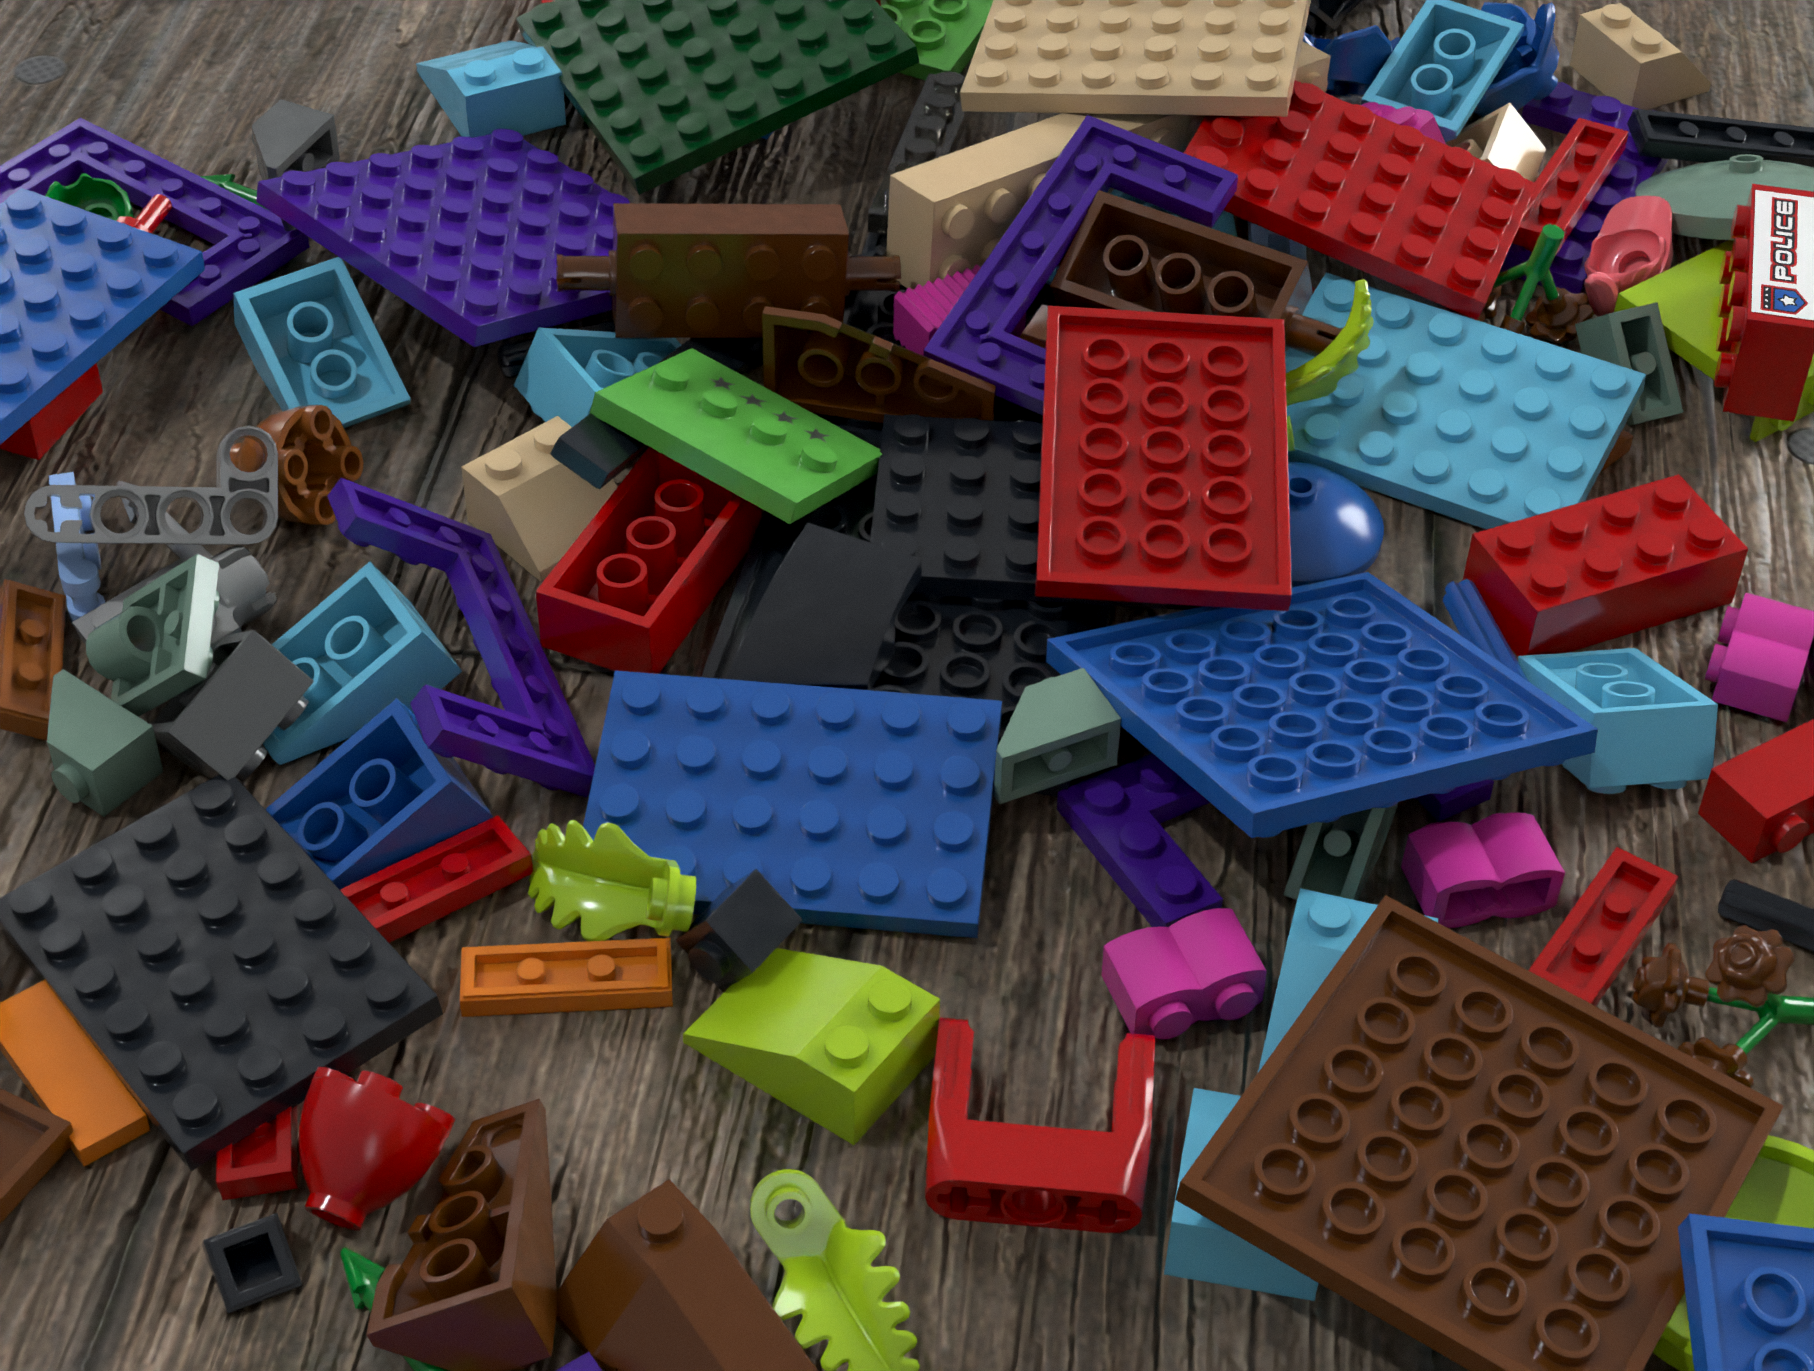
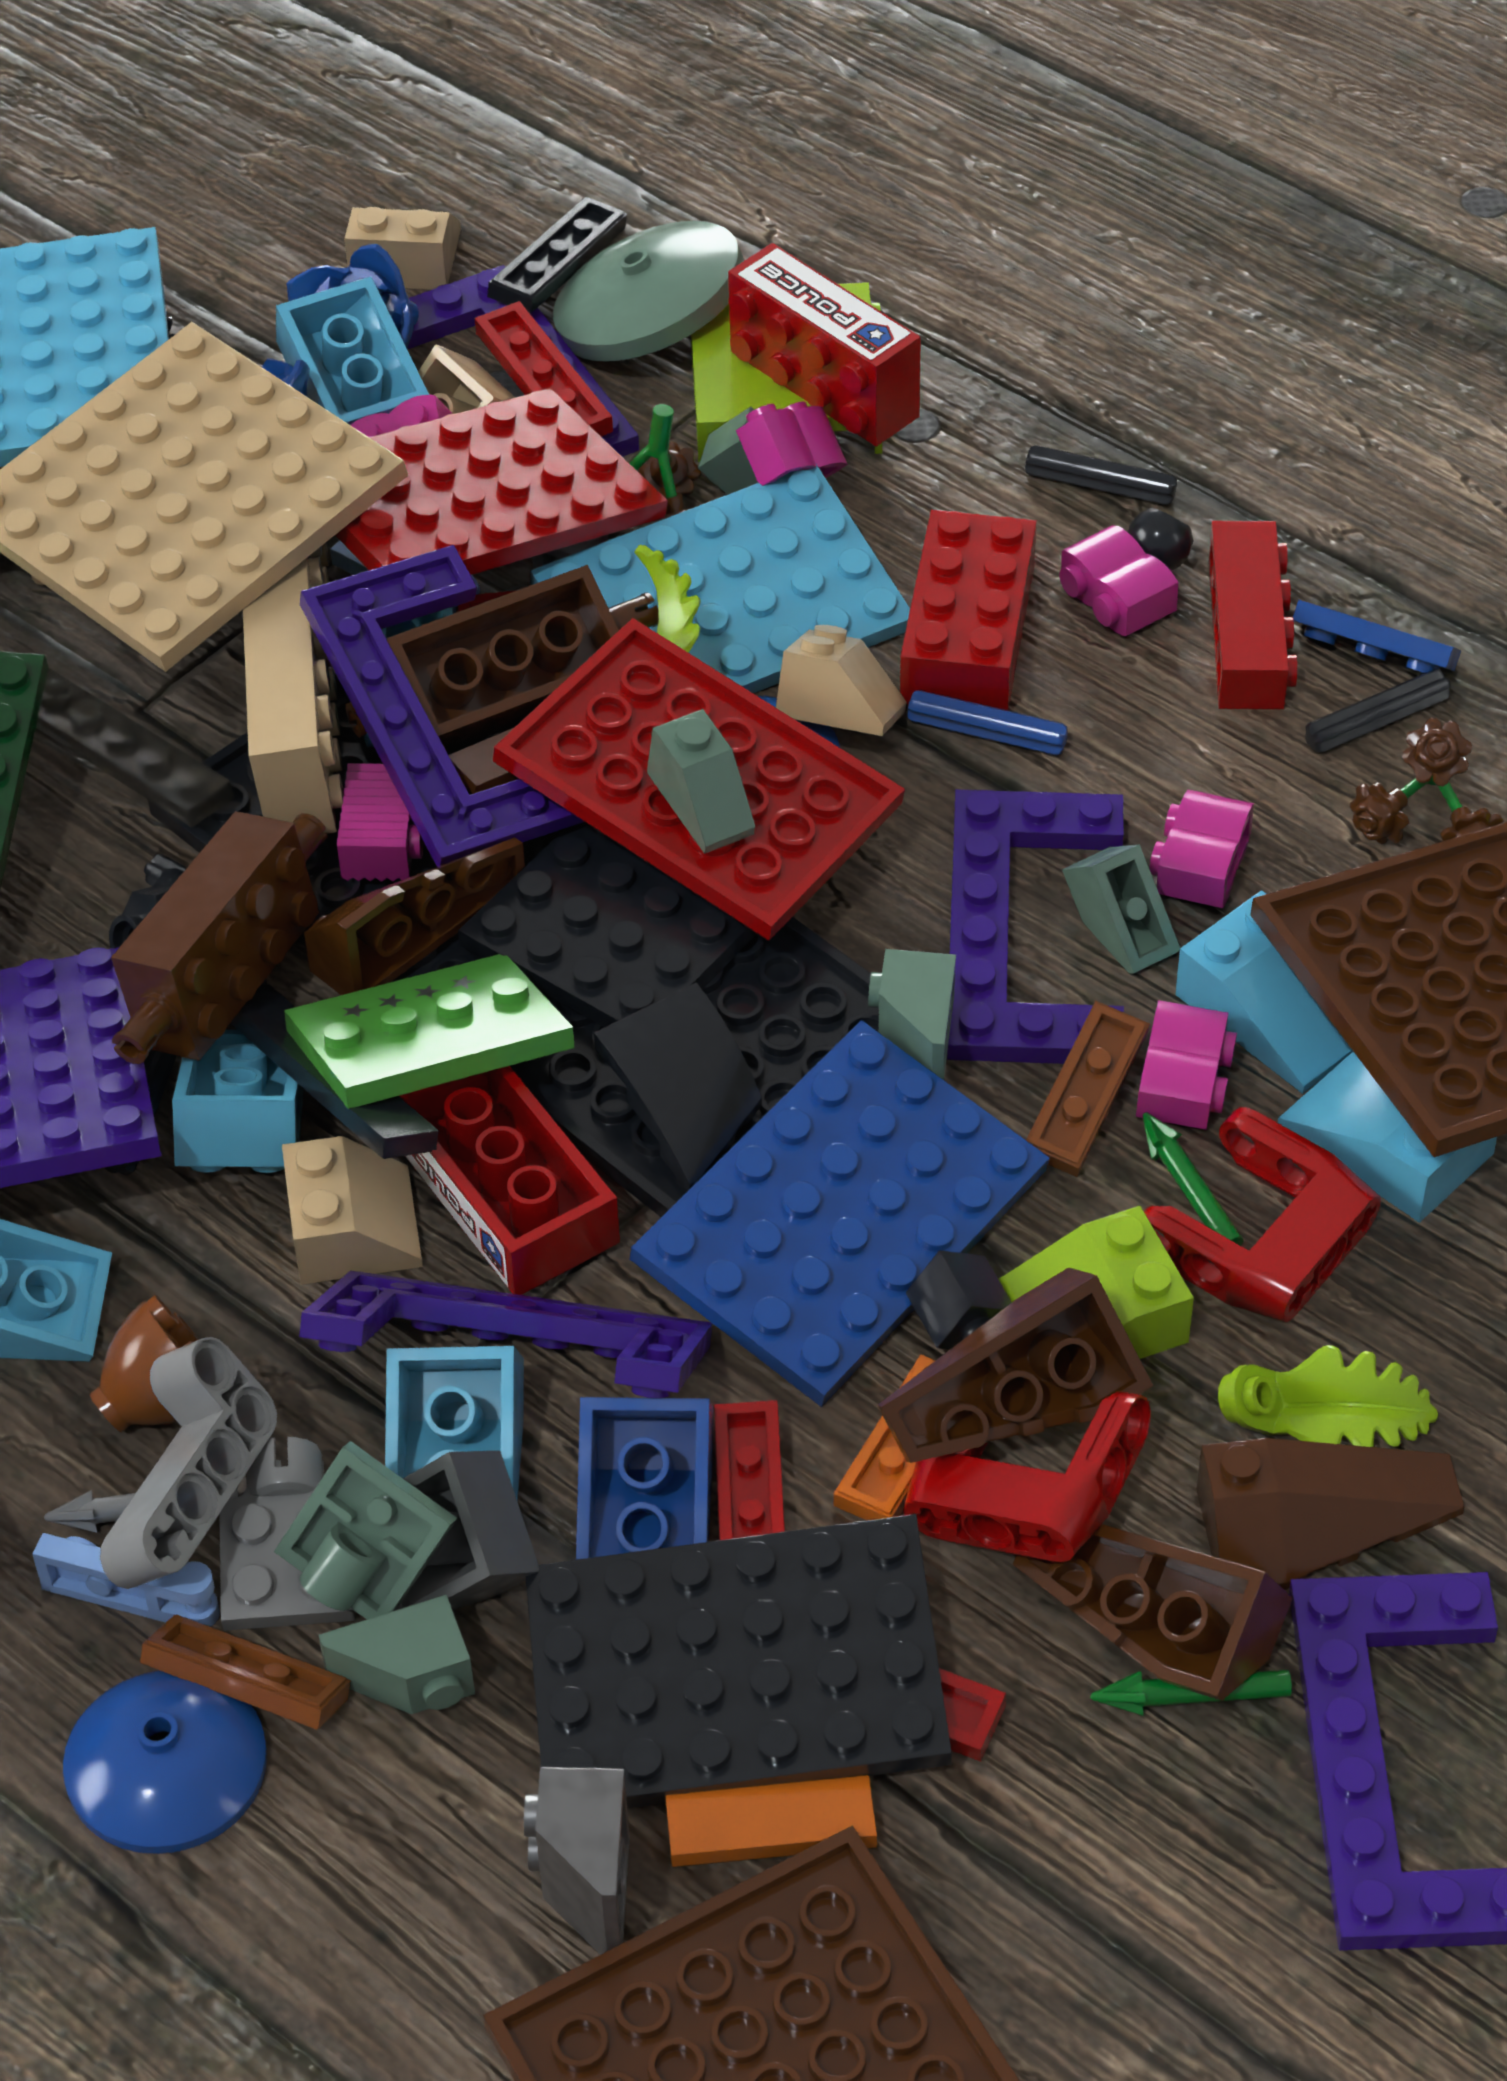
camera: 55 degrees left, 5 degrees up
(251, 1263) = (1056, 1764): black slope -> none
(364, 1145) = (1020, 1635): red piece -> none
(517, 1105) = (1028, 1507): none -> red connector
(607, 883) = (859, 1359): lime plant -> none
(661, 999) = (1020, 1372): none -> reddish brown wedge
(1079, 1012) = (1164, 1145): none -> green piece
(1083, 911) = (1087, 1087): none -> dark orange tile
(1129, 439) = (700, 780): none -> sand green slope
(1320, 704) = (1017, 839): blue plate -> none
(1402, 512) = (837, 683): none -> tan slope
(1605, 926) = (1300, 816): red plate -> none
(1628, 249) = (645, 375): coral hair -> none
(1646, 718) = (1118, 688): medium azure slope -> none
(1648, 344) = (790, 441): none -> dark pink brick

